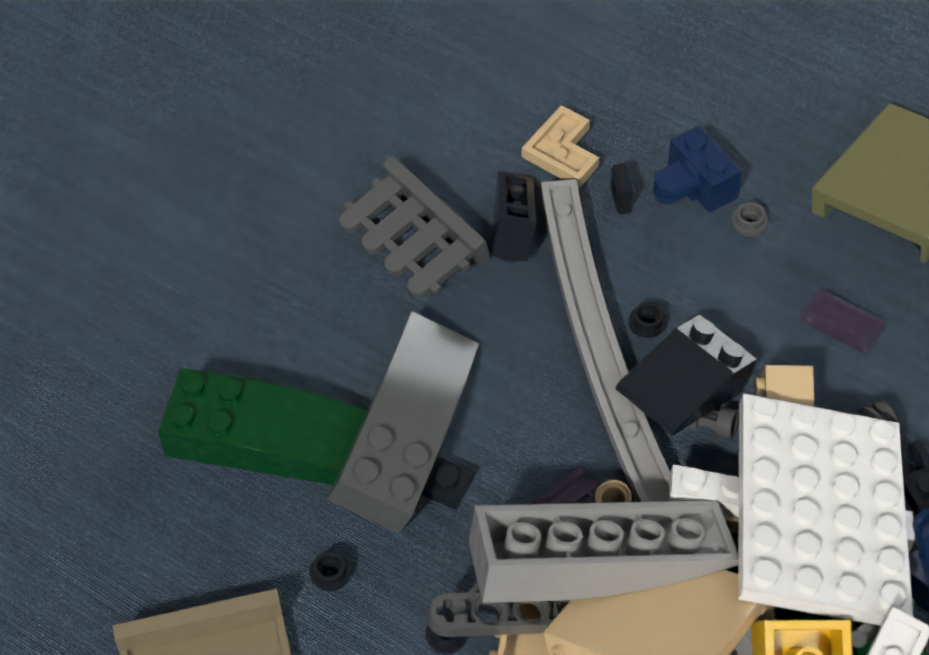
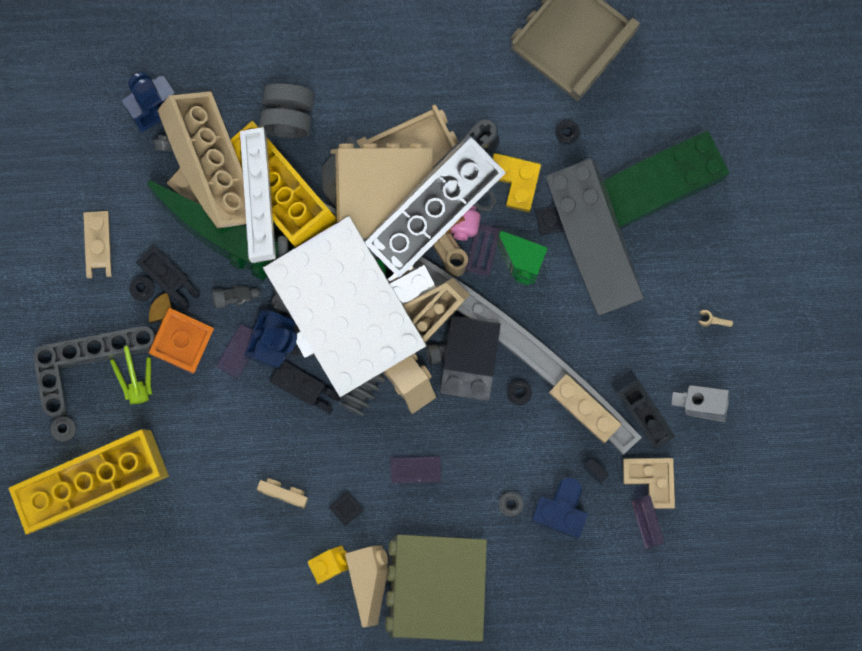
camera: 135 degrees right, 25 degrees up
(348, 255) = (714, 320): none -> tan hand
(419, 203) = (675, 374): dark grey fence -> none
(439, 166) = (714, 402): none -> light grey torso
(440, 556) = (523, 180): none -> yellow plate
(522, 440) = (521, 257): none -> green slope
(585, 242) = (585, 408): none -> tan plate
(603, 111) = (648, 522): none -> clear purple tile
(687, 440) = (435, 307): none -> tan wedge

